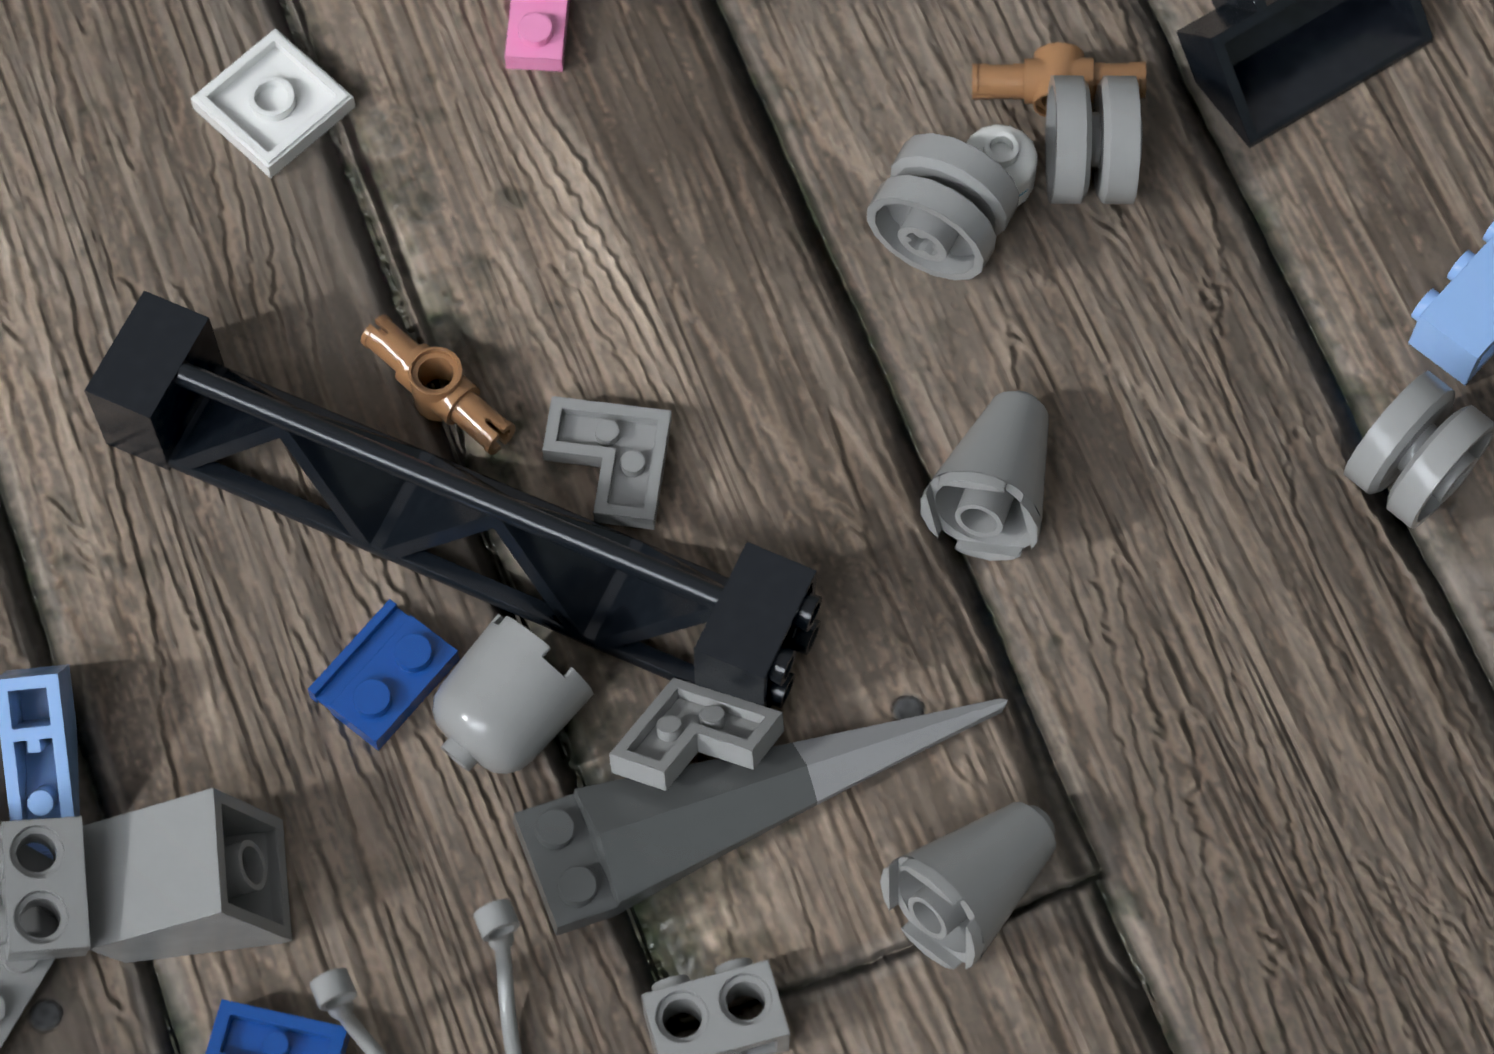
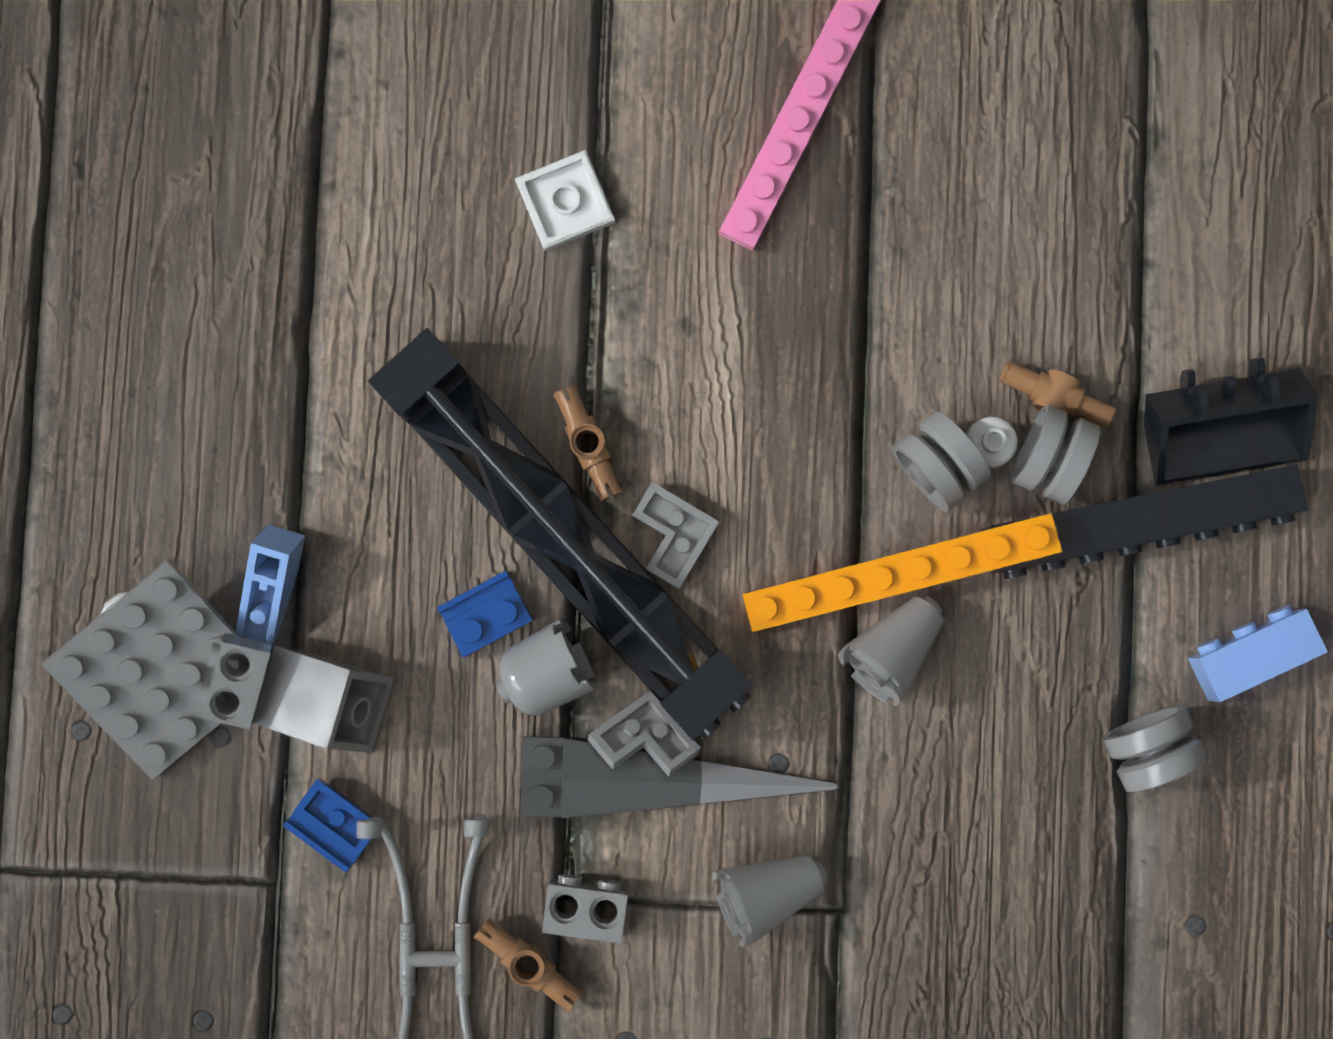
camera: 25 degrees right, 20 degrees up
(955, 373) = (902, 572): none -> light orange plate
(1251, 188) = (1171, 514): none -> black brick

